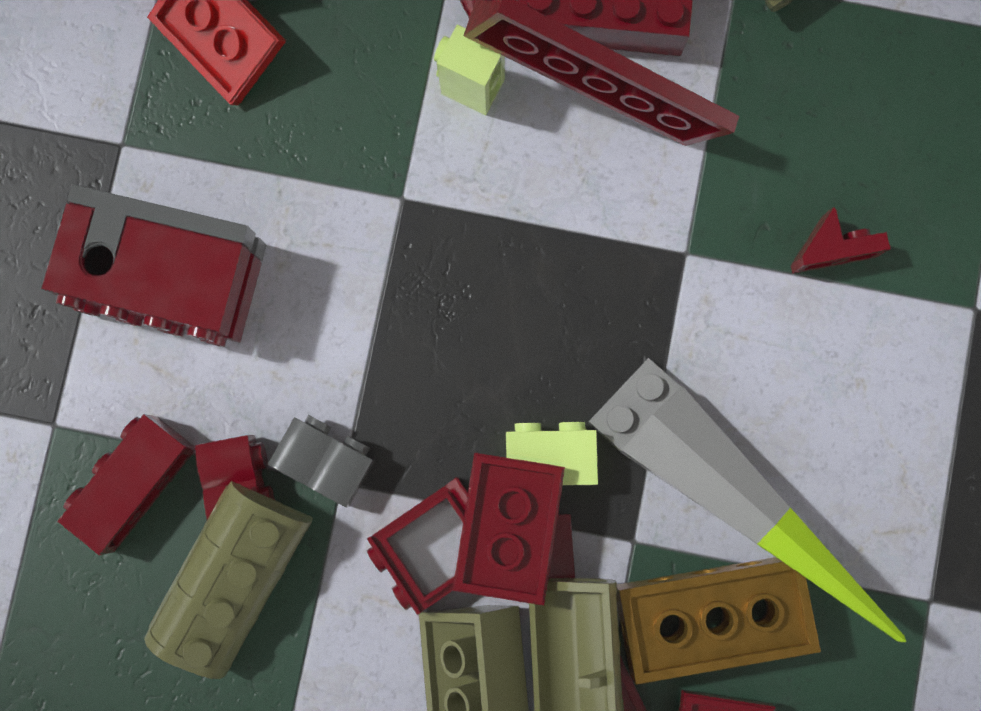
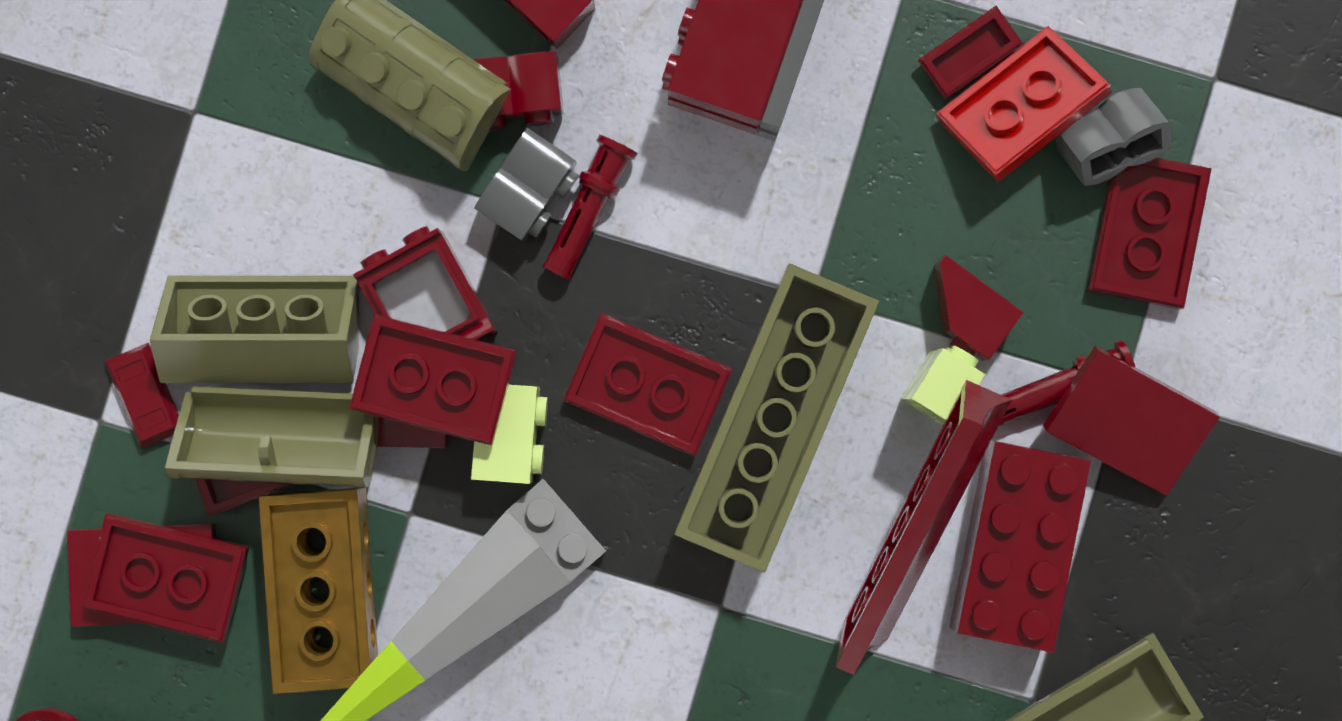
camera: 95 degrees right, 5 degrees up
(174, 80) = (970, 52): none -> dark red tile
(317, 396) = (597, 186): none -> dark red pin
(400, 57) = (972, 311): none -> dark red slope
(494, 335) = (647, 384): none -> dark red tile
(512, 214) = (776, 417): none -> olive brick

